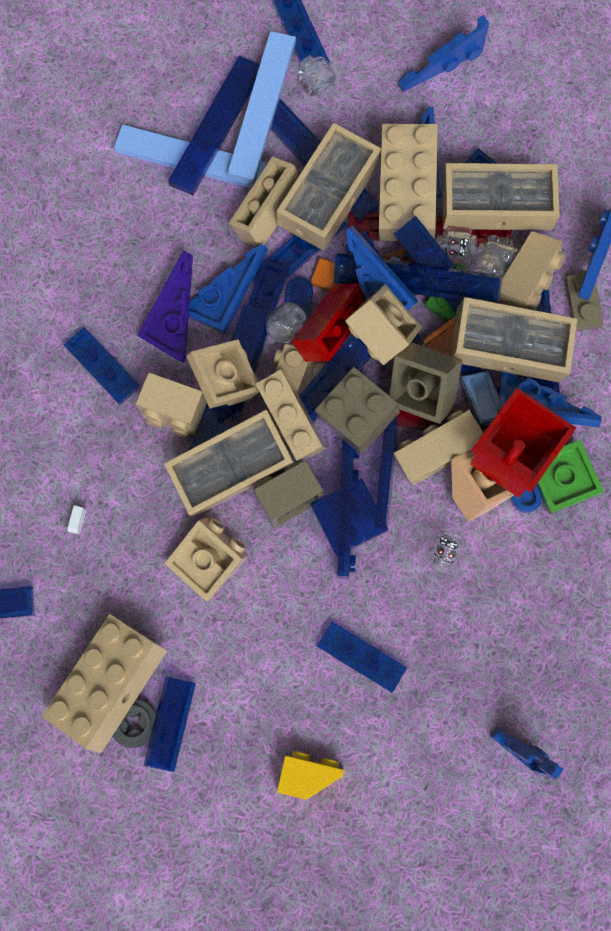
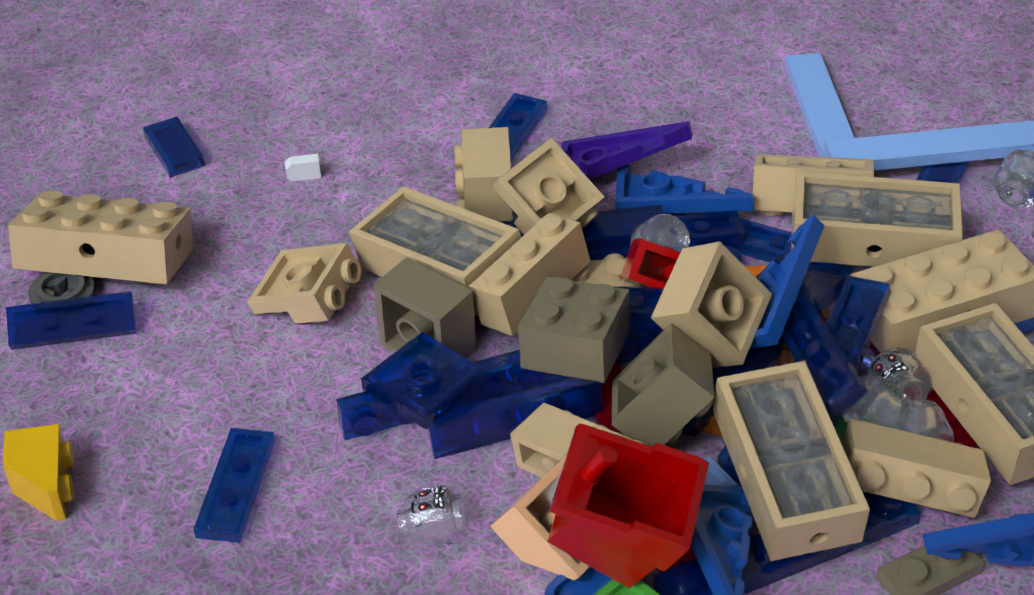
camera: 65 degrees right, 35 degrees down
(215, 126) = (867, 117): clear blue tile -> none

